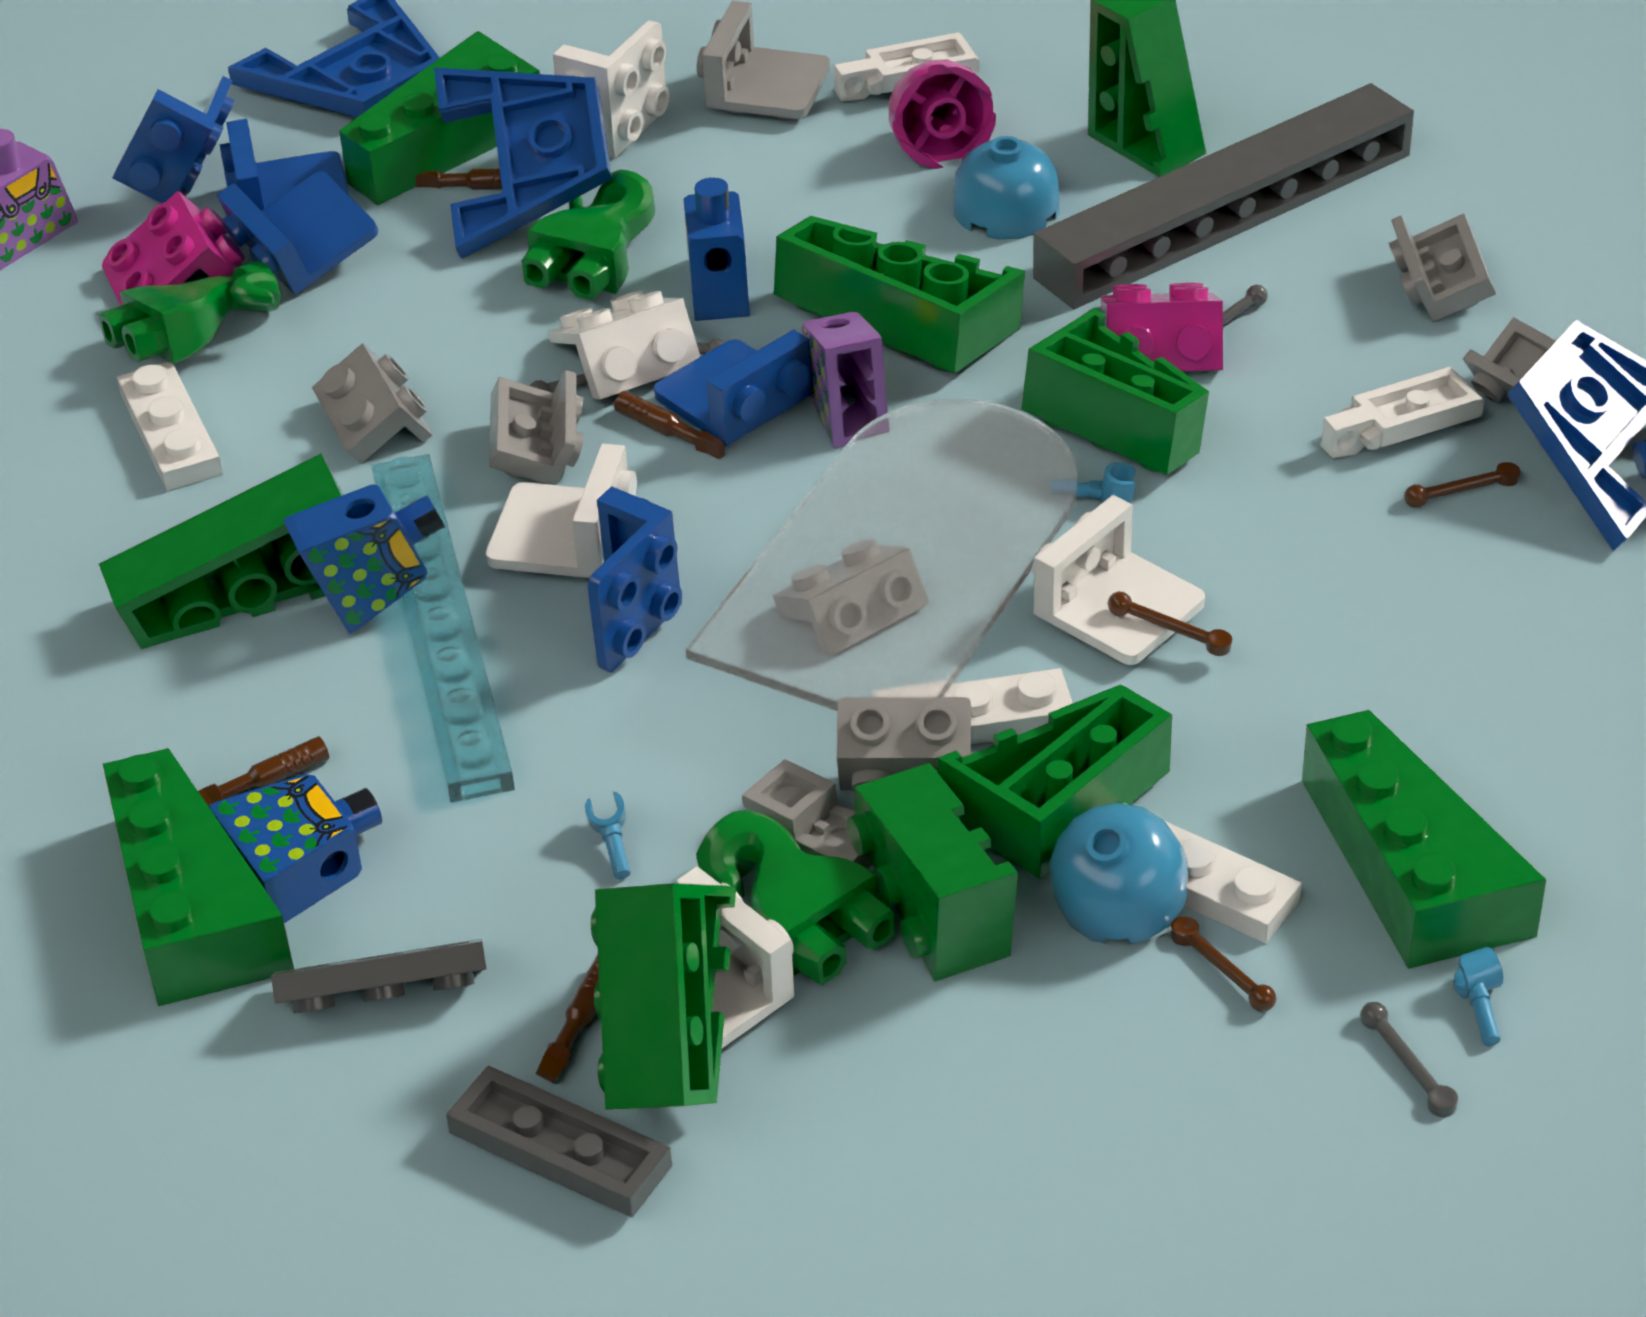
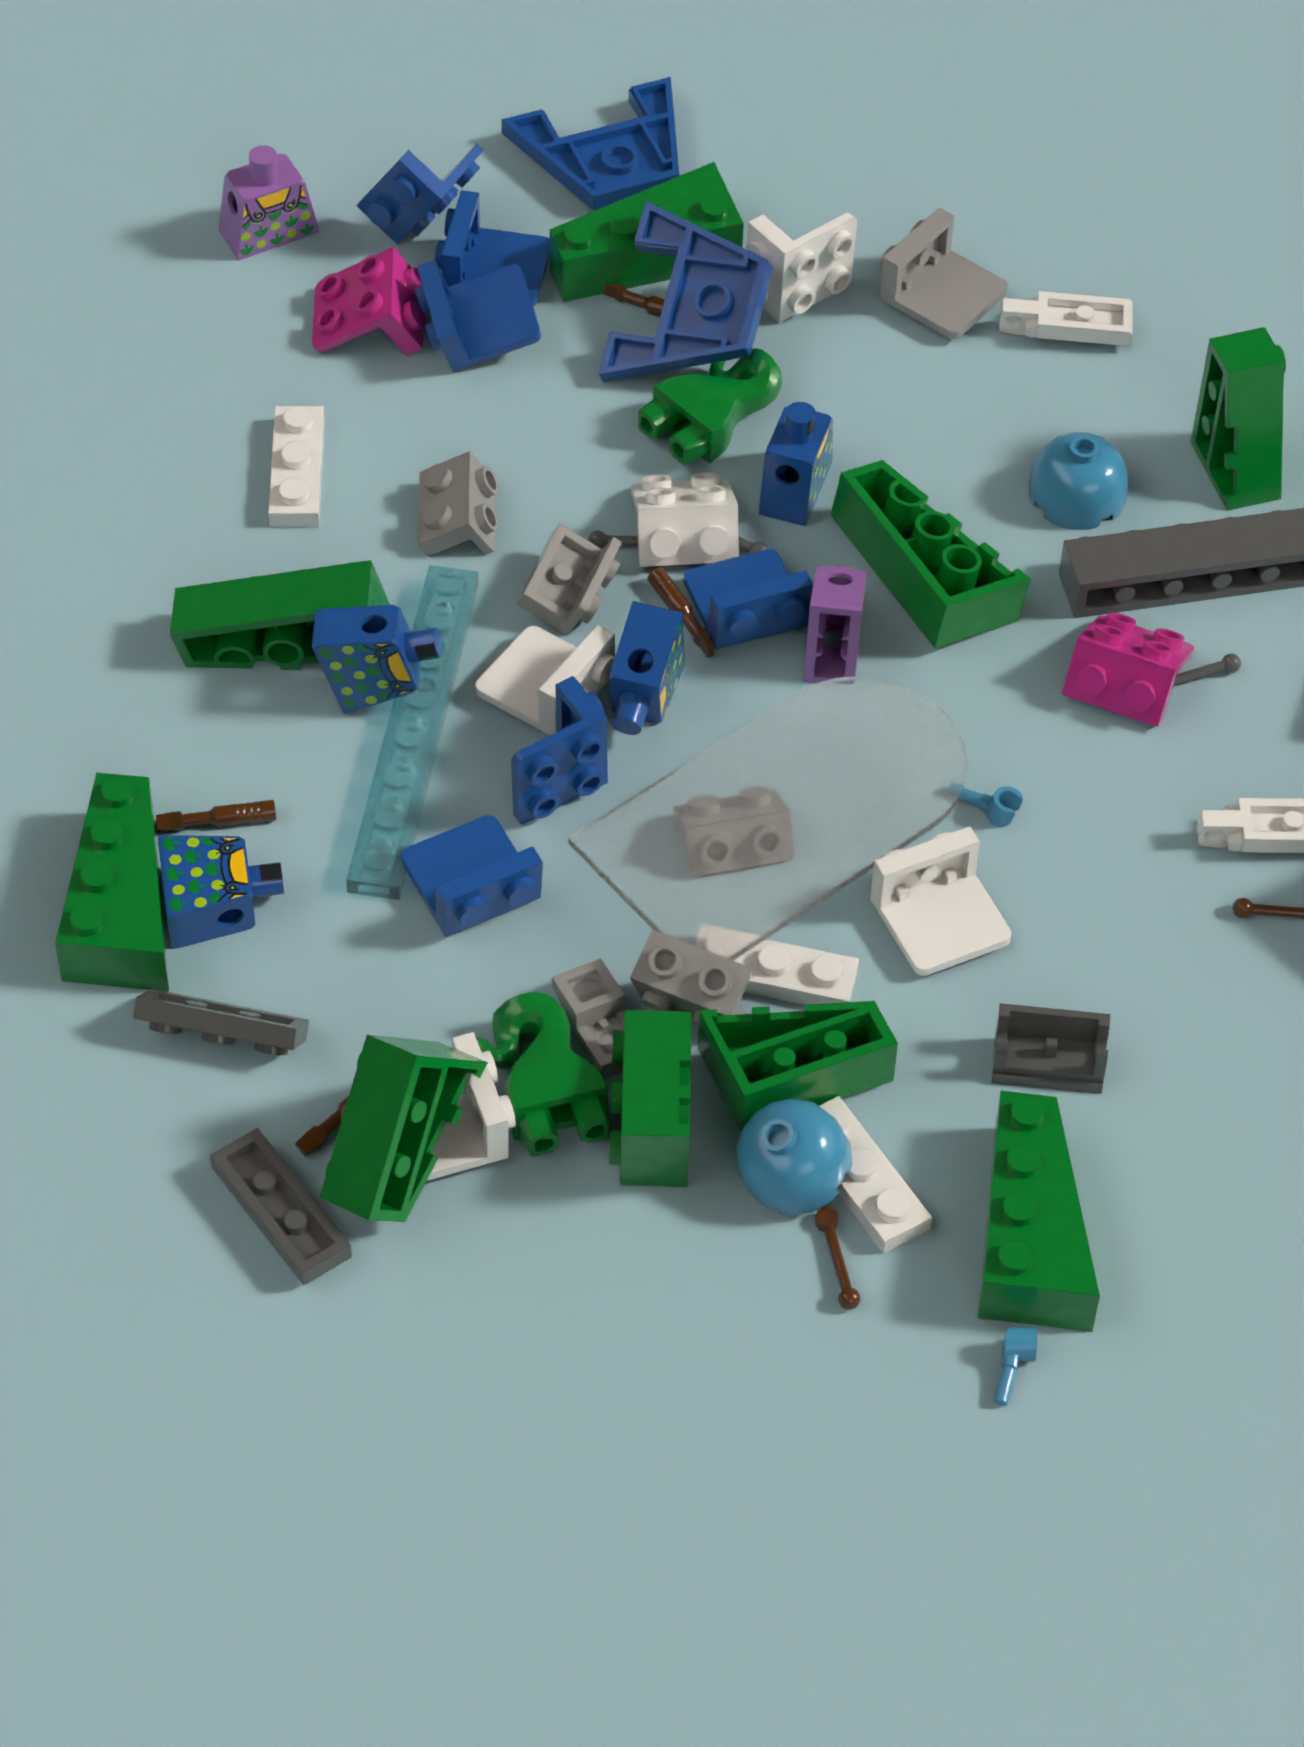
camera: 20 degrees right, 10 degrees up
(186, 316) = (348, 368): green hips -> none
(592, 732) = (472, 874): none -> blue bracket
(612, 835) = (446, 967): dark azure hand -> none
(672, 426) = (646, 667): none -> blue torso
(940, 112) = (1061, 384): dark pink cylinder -> none
(1115, 394) = (1041, 723): green wedge -> none
(1217, 641) = (994, 981): reddish brown hinge -> none
(1316, 677) = (1050, 1048): none -> dark grey hinge
(1441, 1098) = (933, 1432): dark grey hinge -> none

